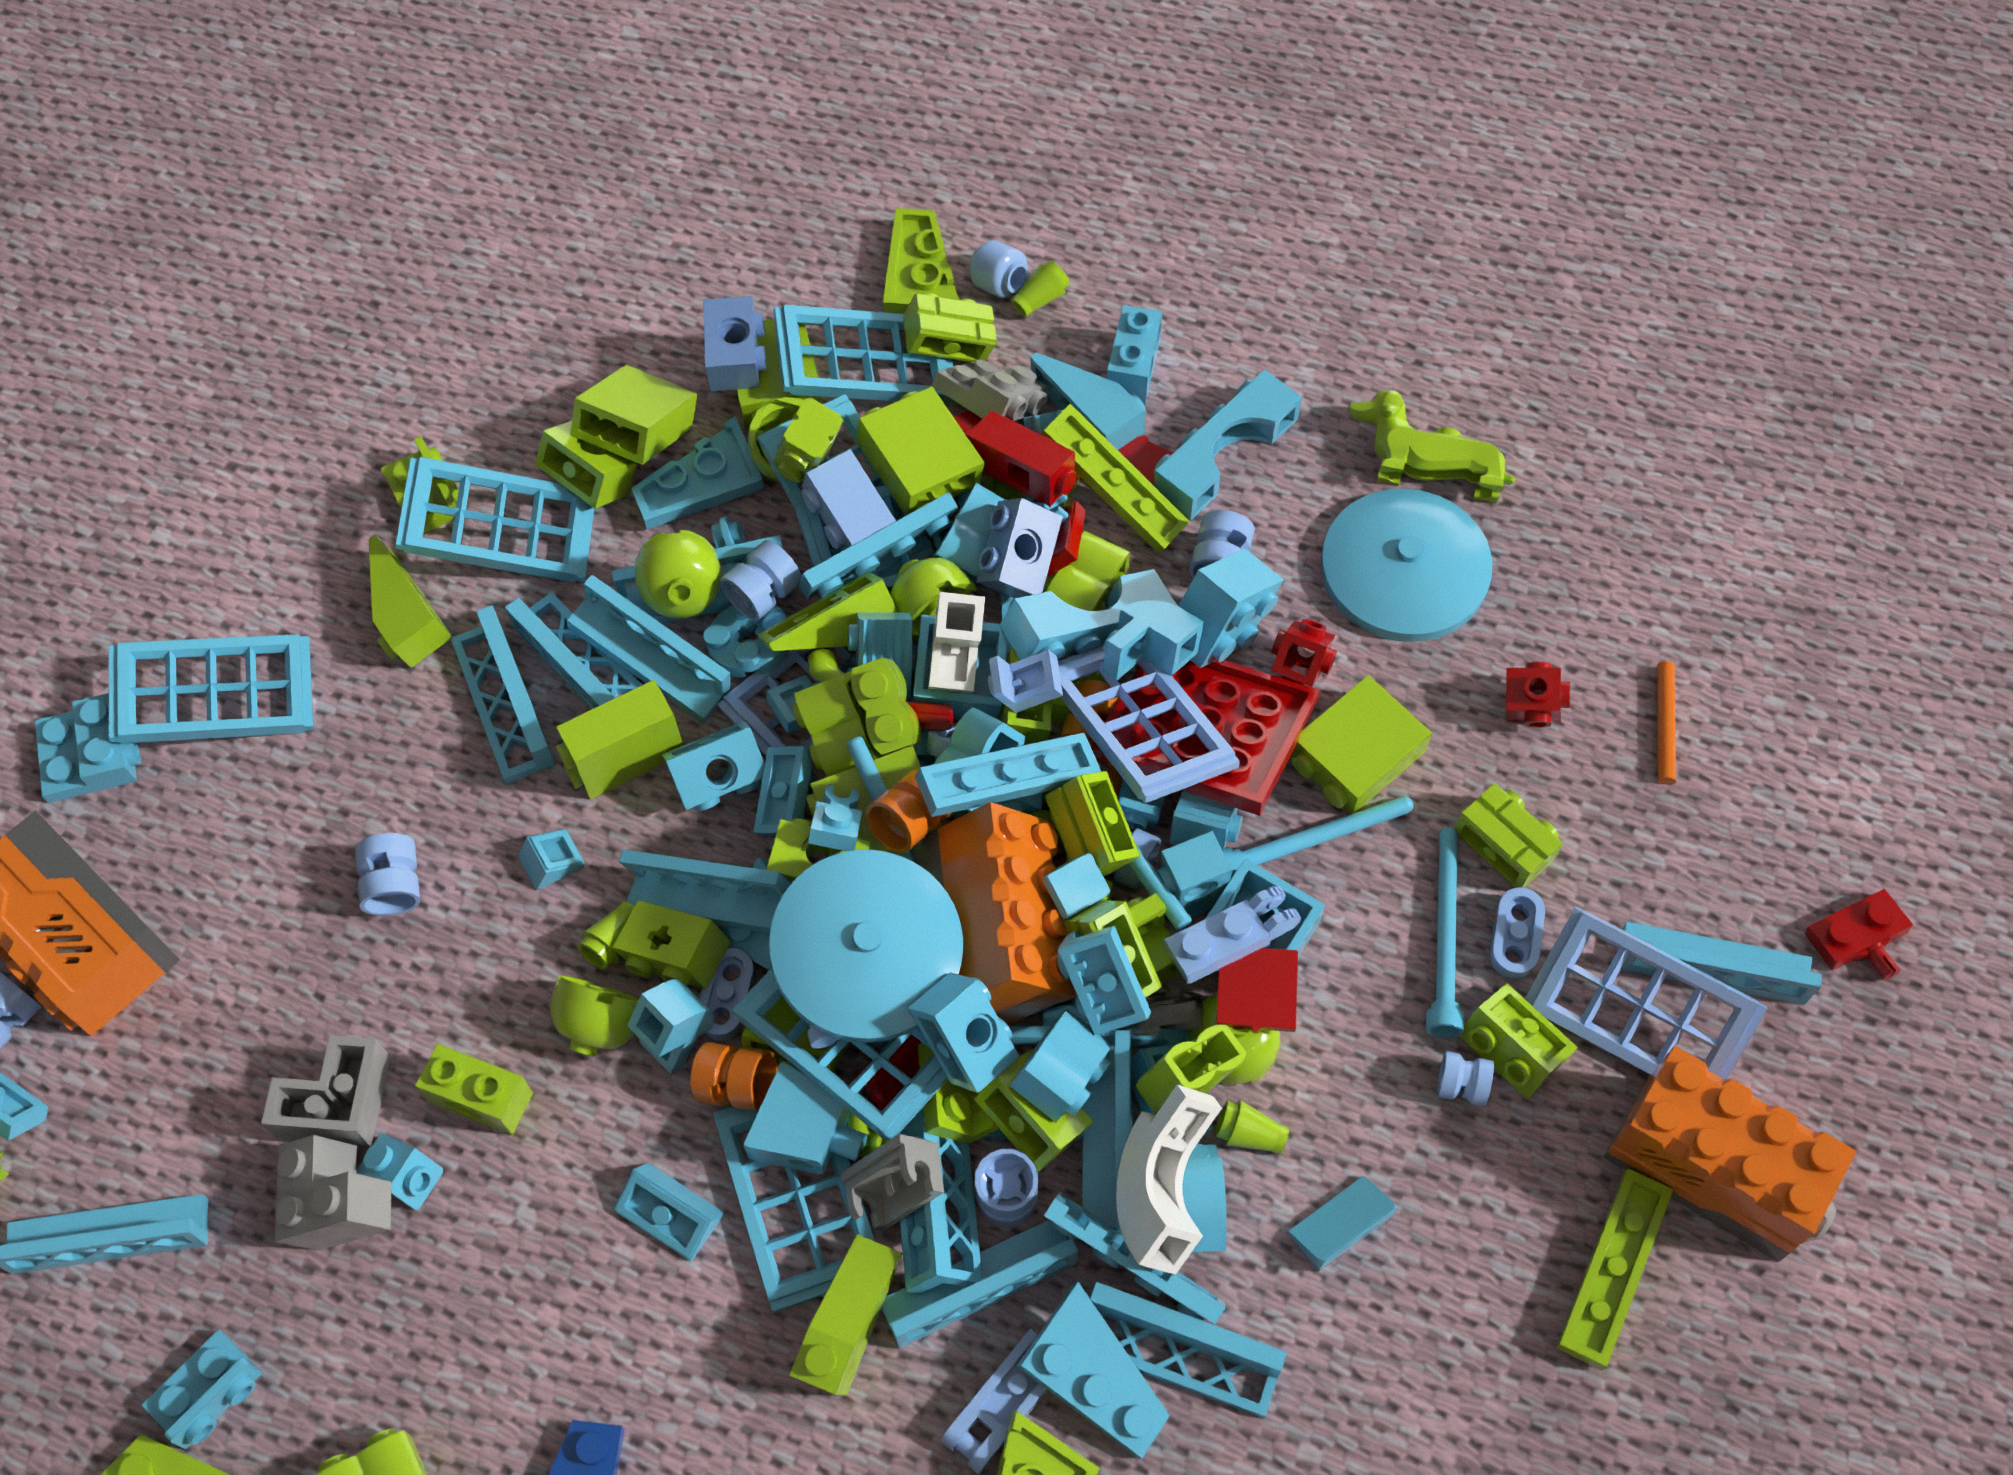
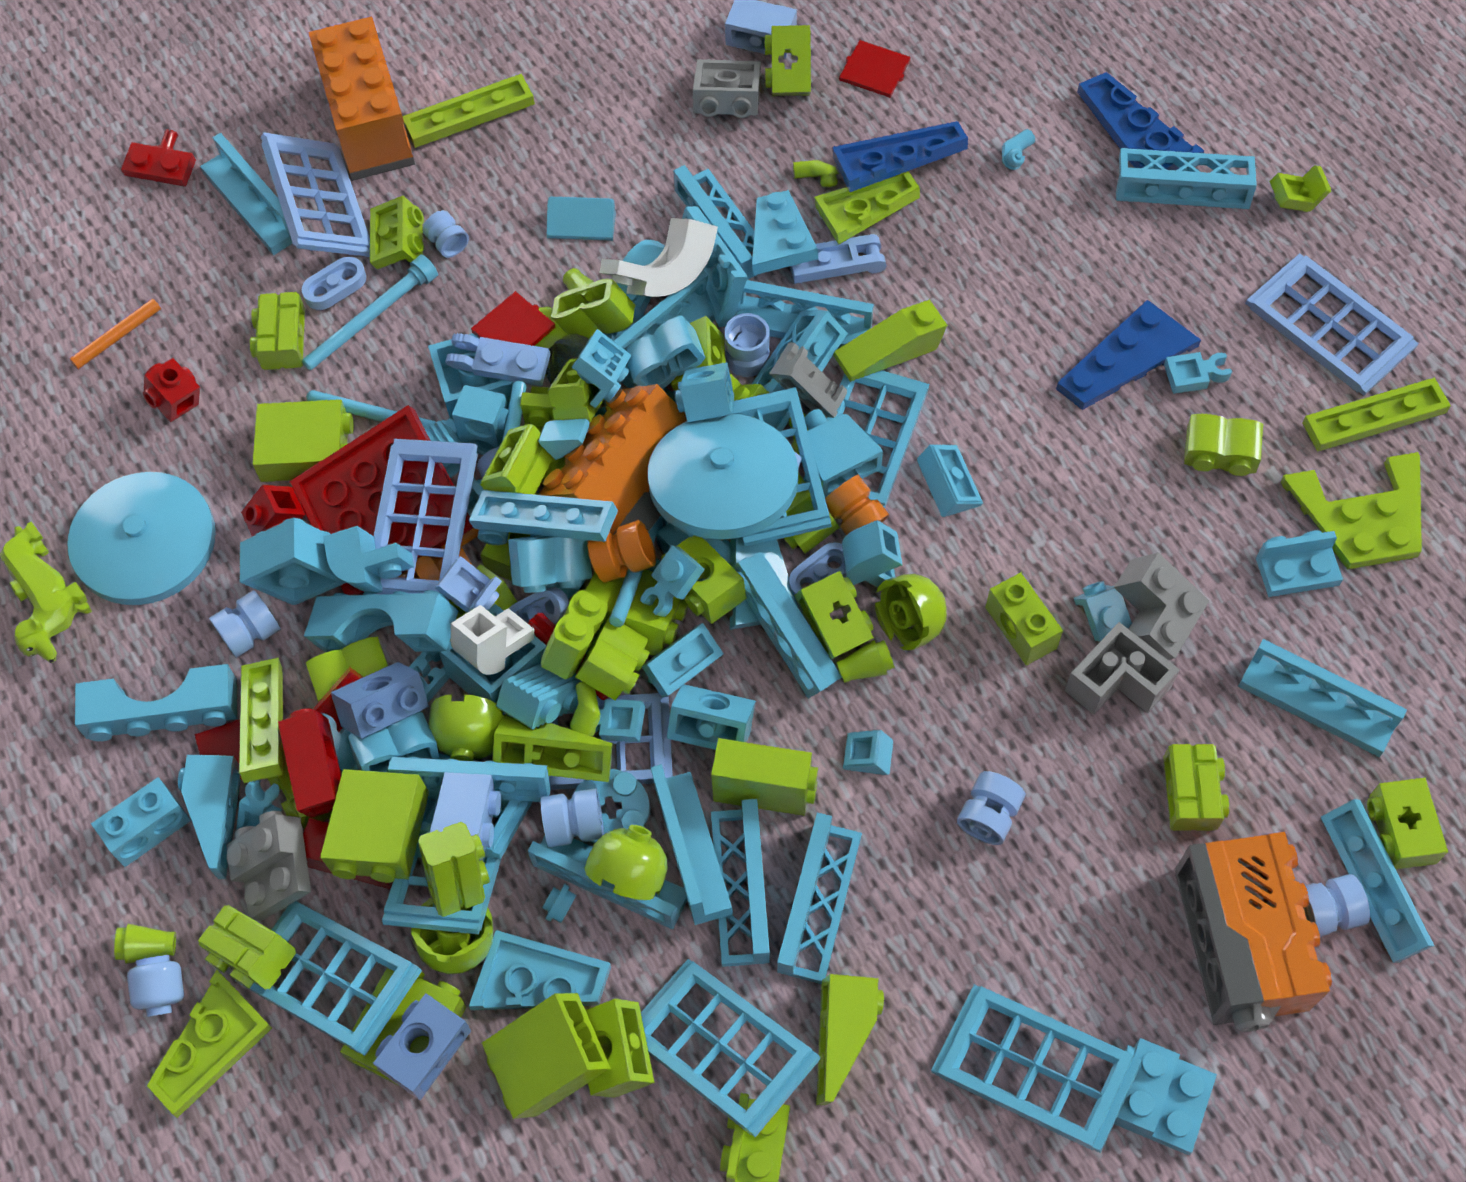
camera: 140 degrees left, 0 degrees up
(193, 1039) = (1194, 787): none -> lime brick

